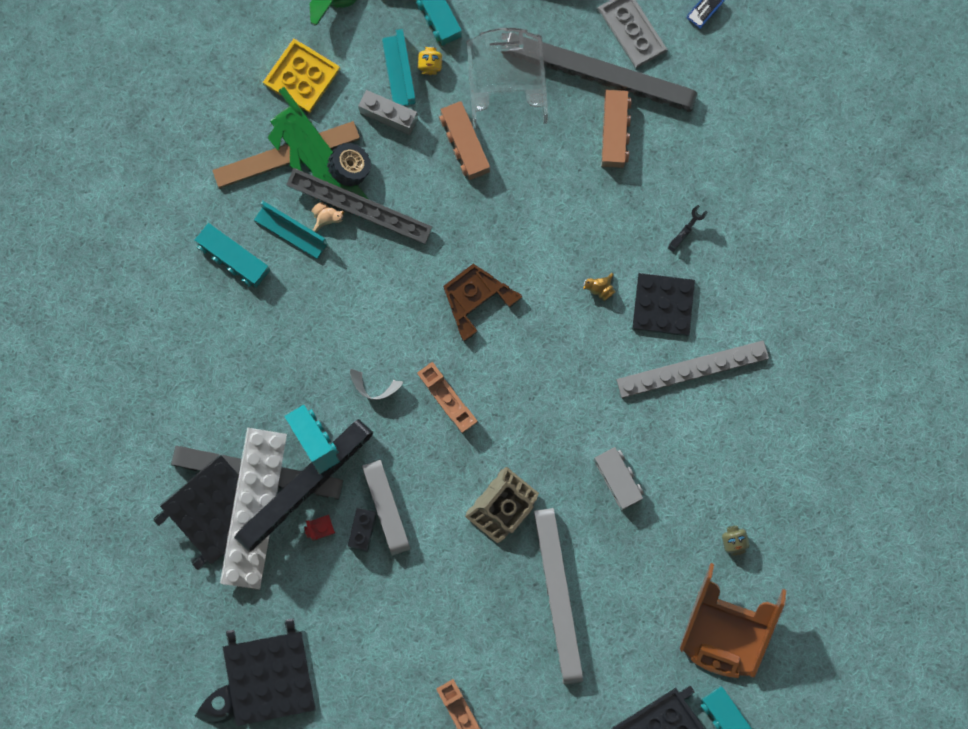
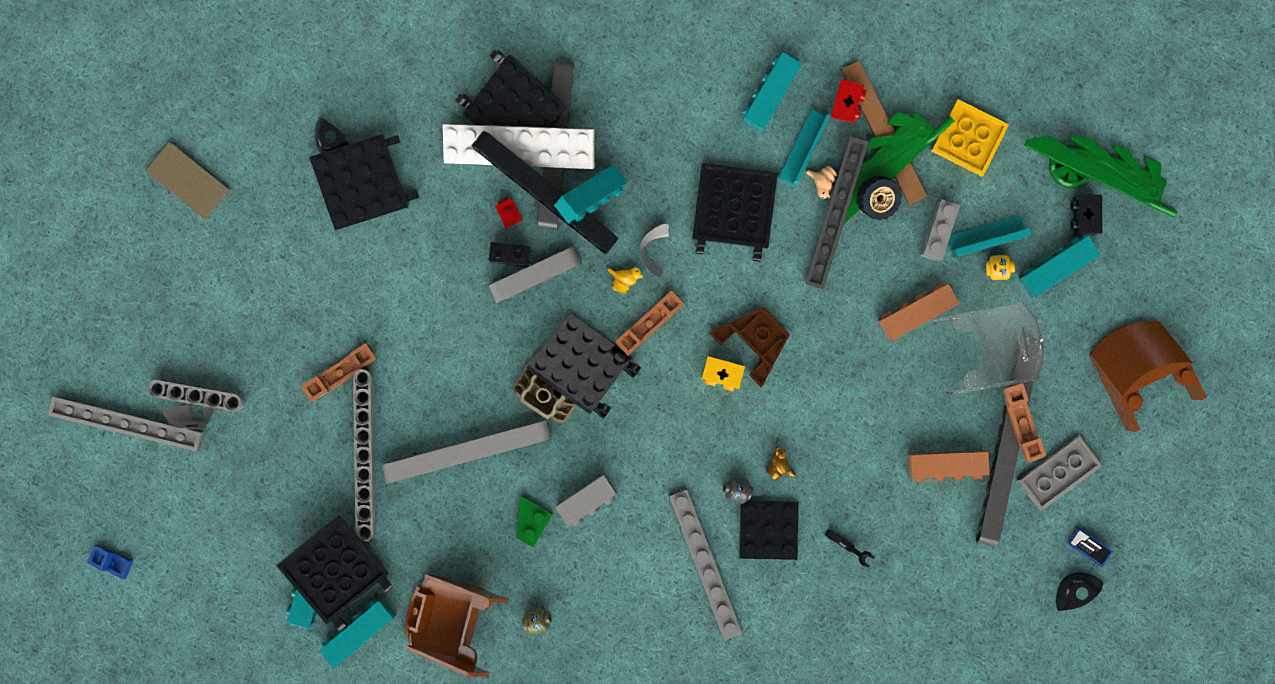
camera: 90 degrees right, 10 degrees up
(240, 184) = (845, 91): none -> red brick
(342, 303) = (734, 207): none -> black plate
(400, 418) = (624, 279): none -> yellow animal
(482, 467) = (581, 364): none -> black plate
(504, 321) = (733, 370): none -> yellow brick
(561, 700) = (359, 463): none -> light grey beam
(581, 55) = (1022, 422): none -> nougat slope
(621, 329) = (737, 490): none -> dark grey head
(635, 537) = (531, 521): none -> green wing
(750, 34) = (1066, 592): none -> black piece

